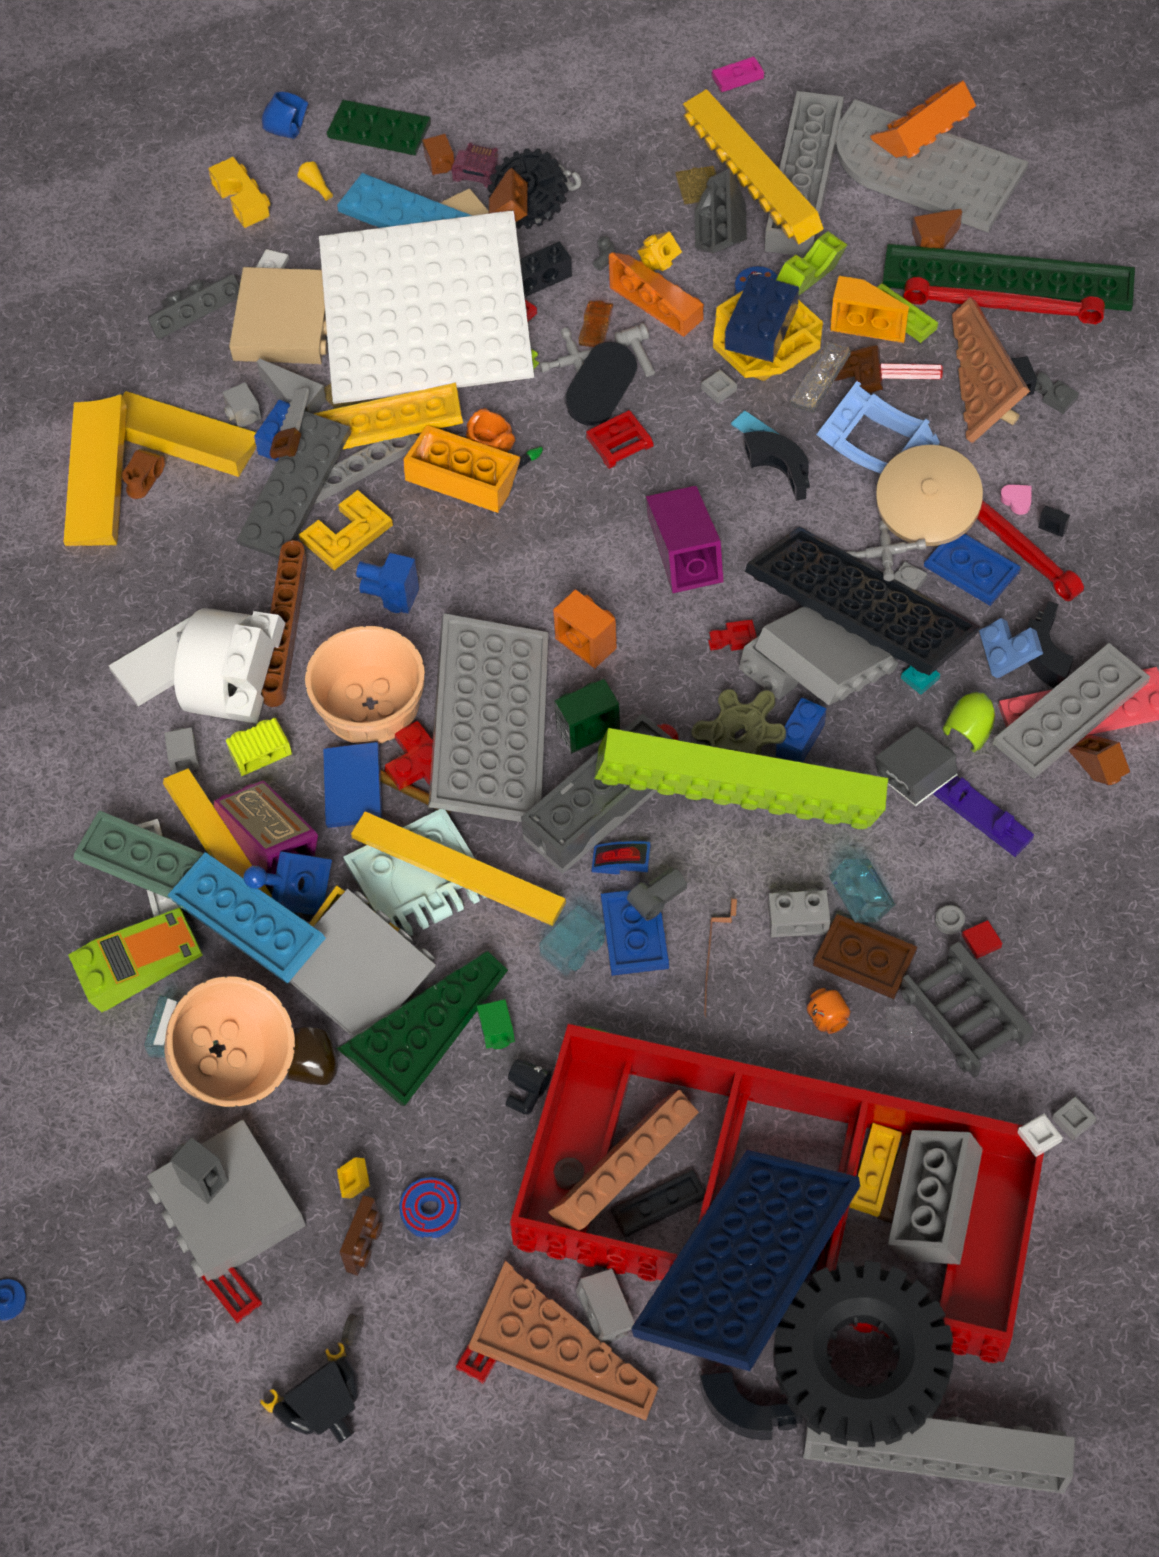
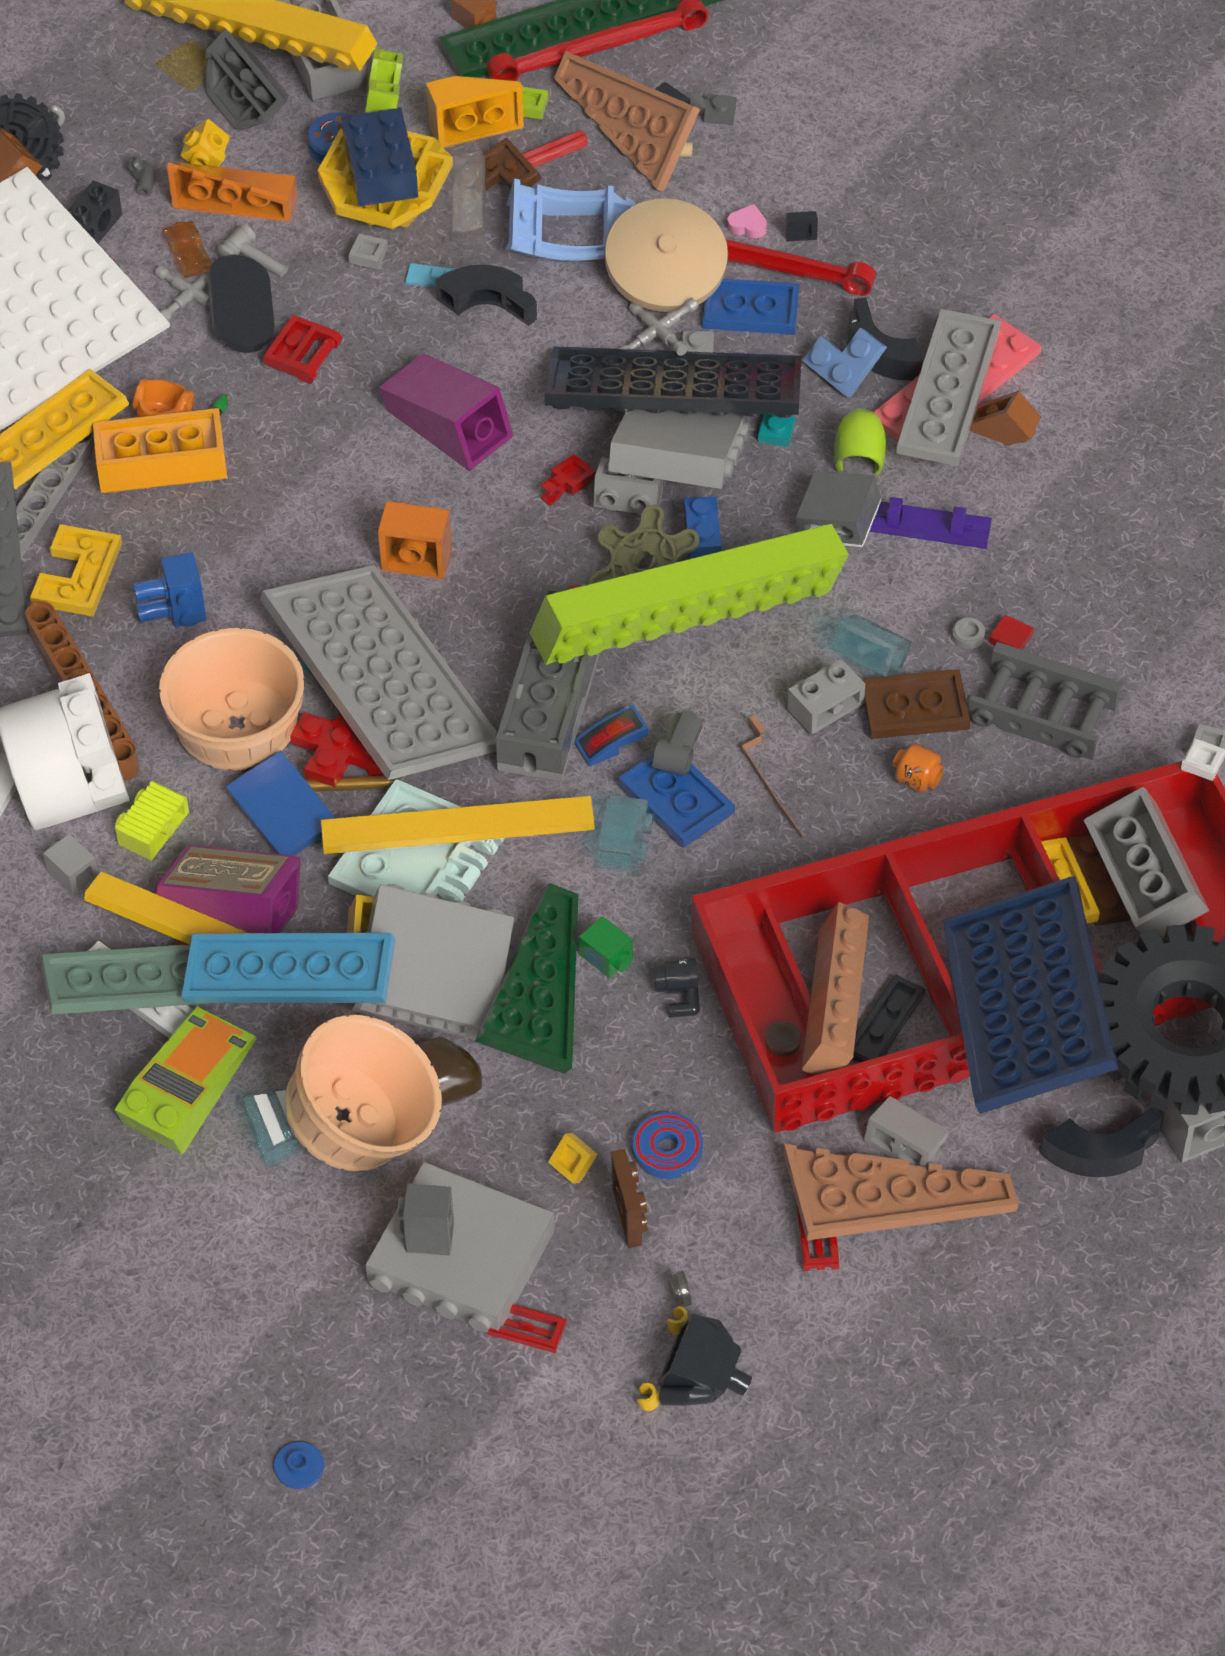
camera: 35 degrees left, 5 degrees down
(285, 881) = (304, 909): blue plate -> none
(586, 715) = (481, 619): dark green brick -> none

